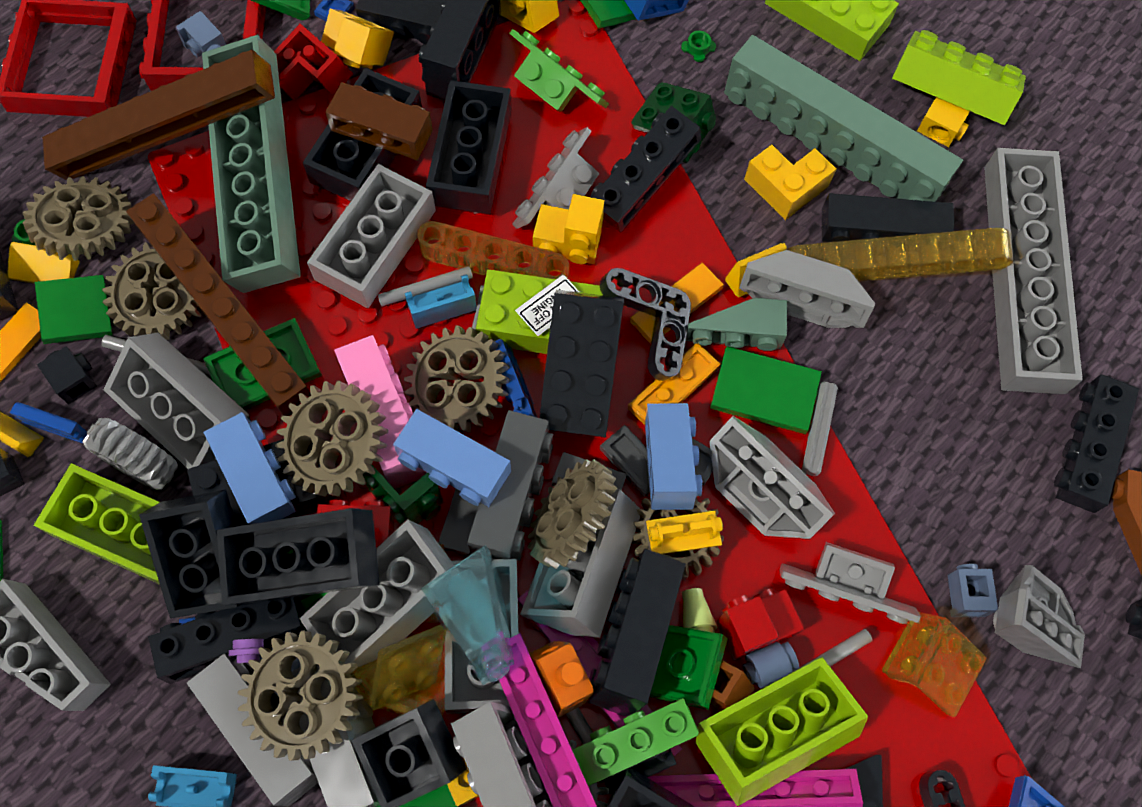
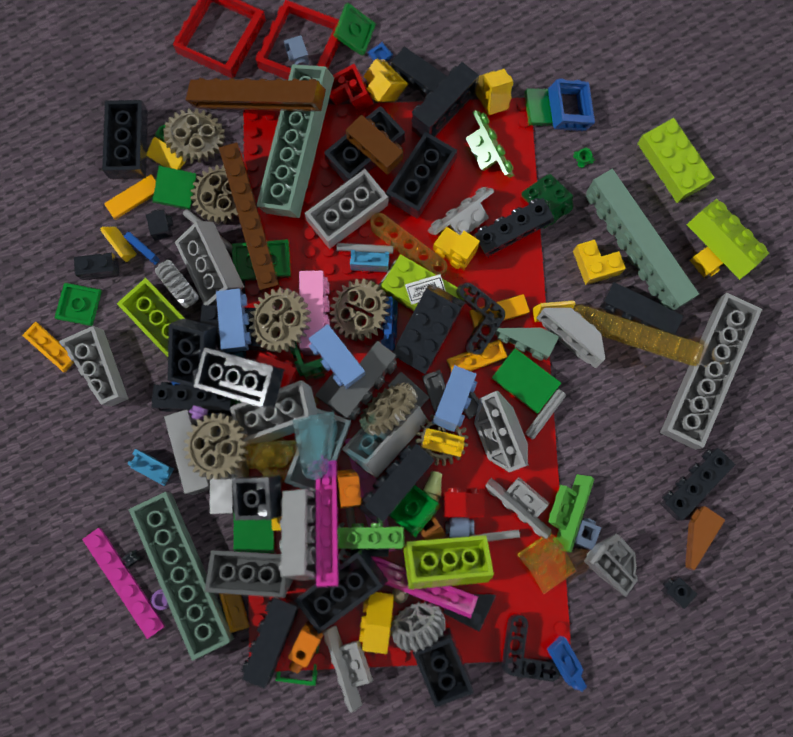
camera: 25 degrees right, 10 degrees up
(930, 561) = (569, 510): none -> bright green bracket

